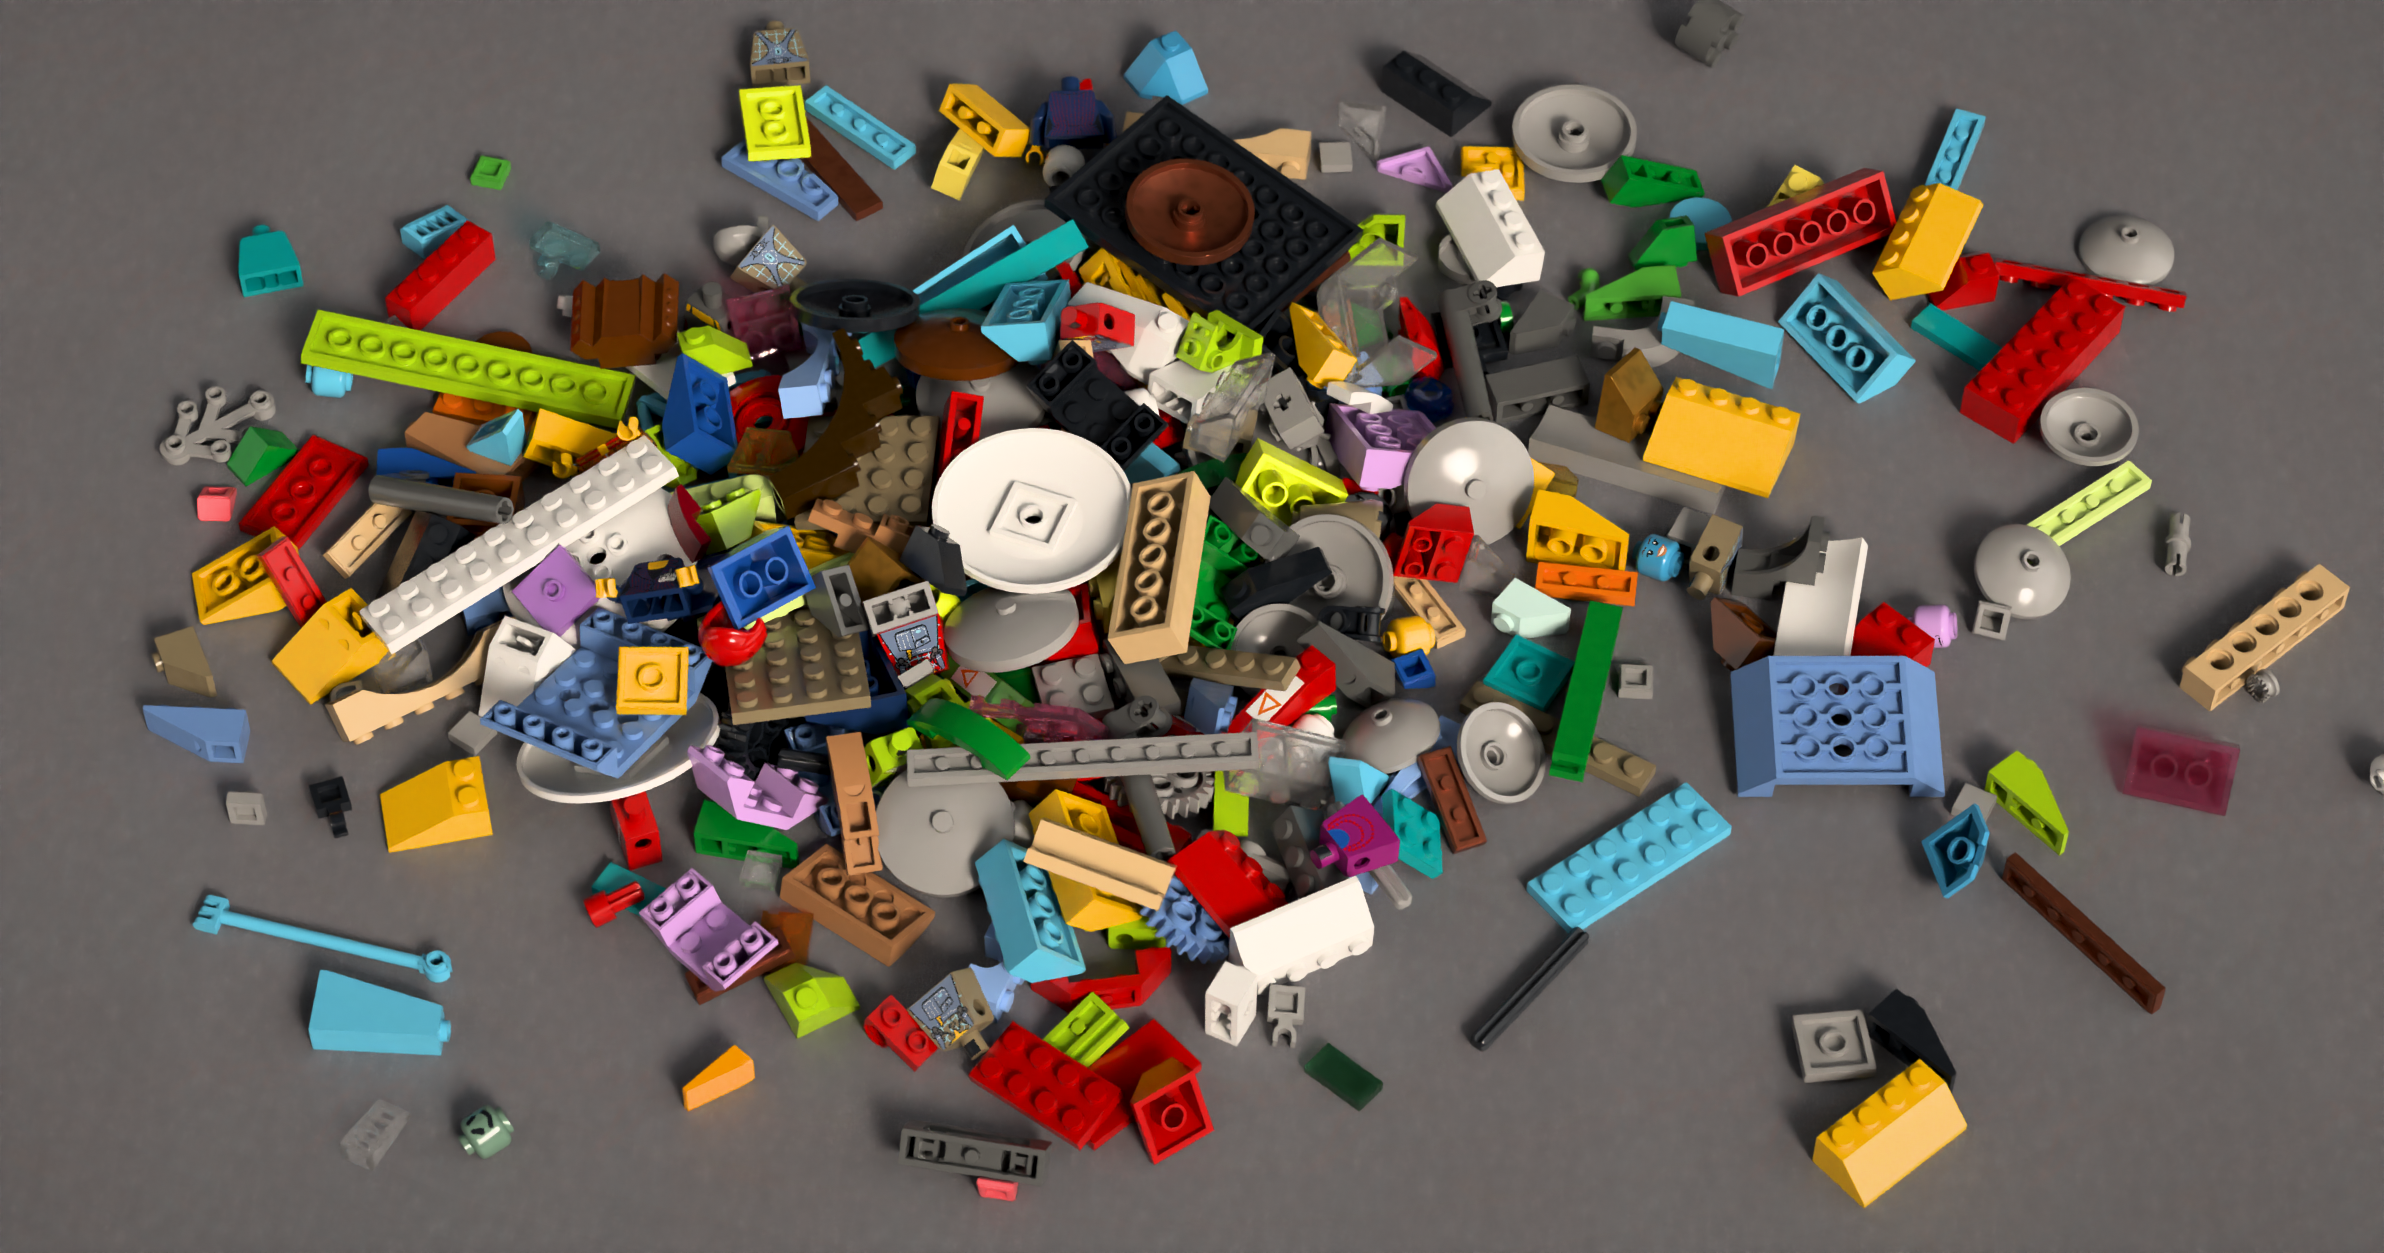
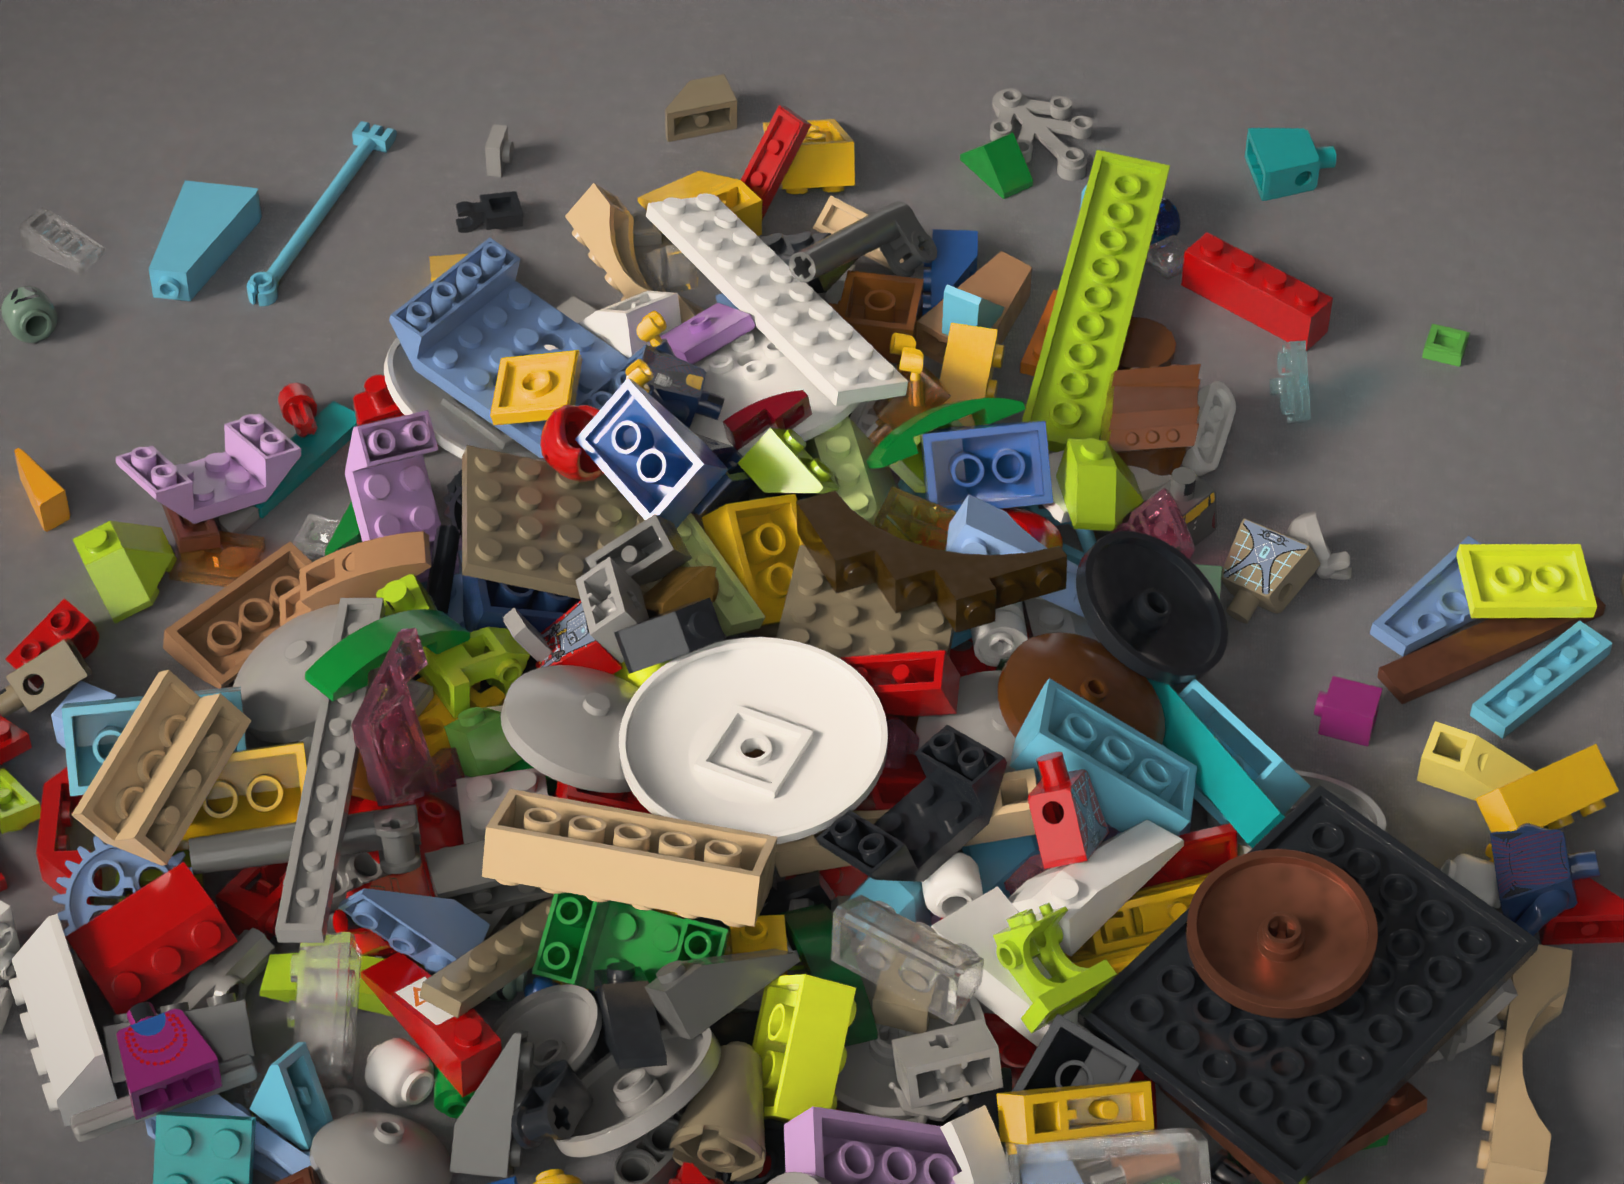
camera: 95 degrees right, 5 degrees down
(207, 732) = (603, 121): medium blue slope -> none
(216, 503) = (934, 134): coral slope -> none
(305, 491) = (941, 195): red tile -> none
(424, 242) = (1333, 275): medium azure slope -> none
(672, 432) = (900, 441): none -> green slope
(854, 528) = (768, 588): medium nougat slope -> none
(904, 228) = (1348, 710): none -> magenta brick

